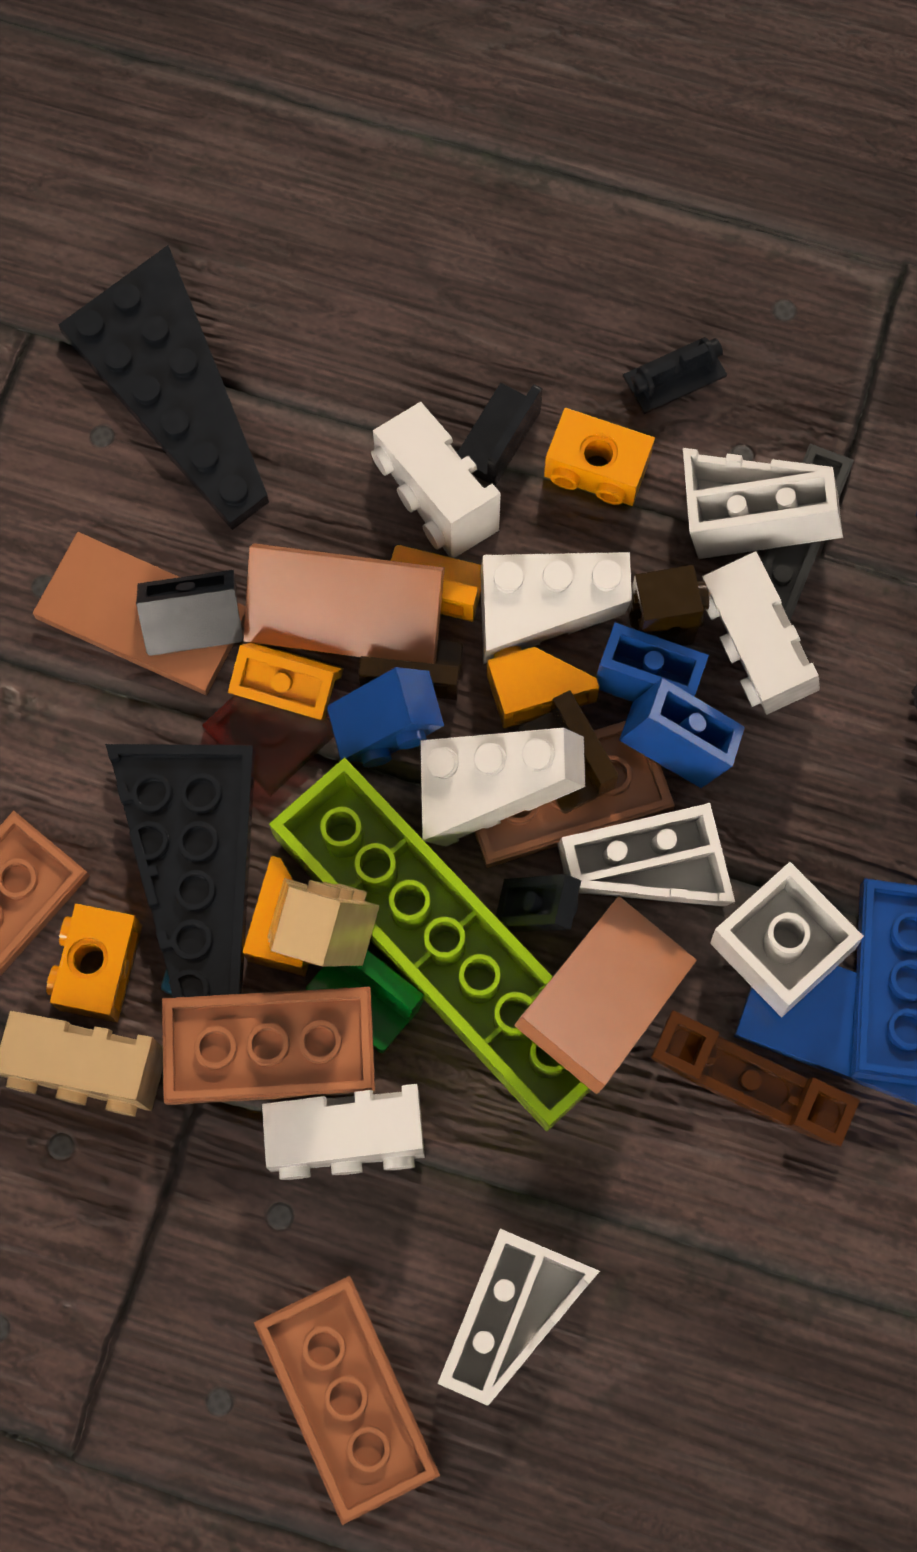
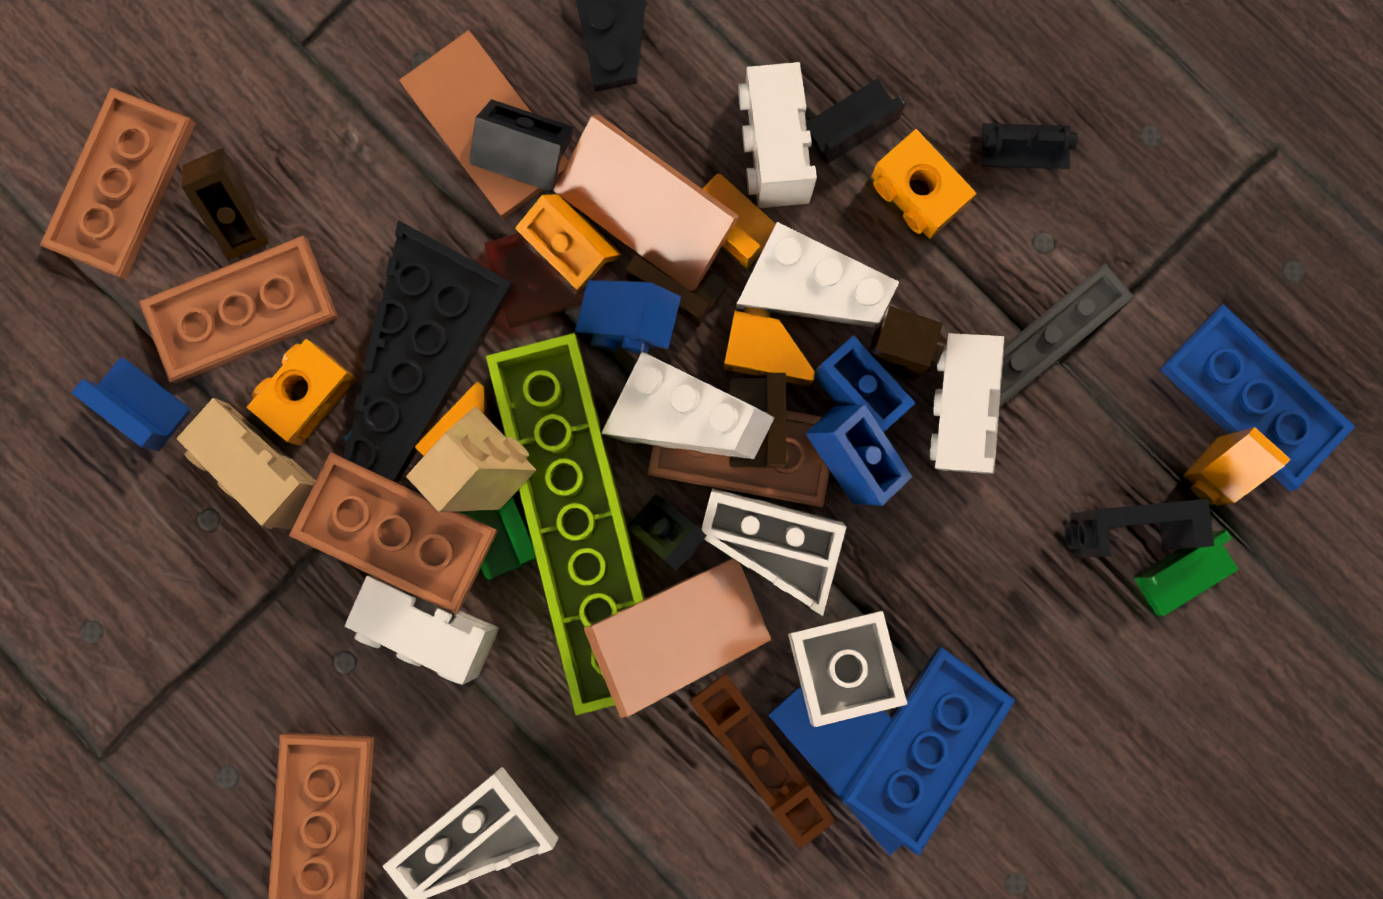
camera: 30 degrees right, 10 degrees up
(757, 504) = (1029, 295): white wedge -> none

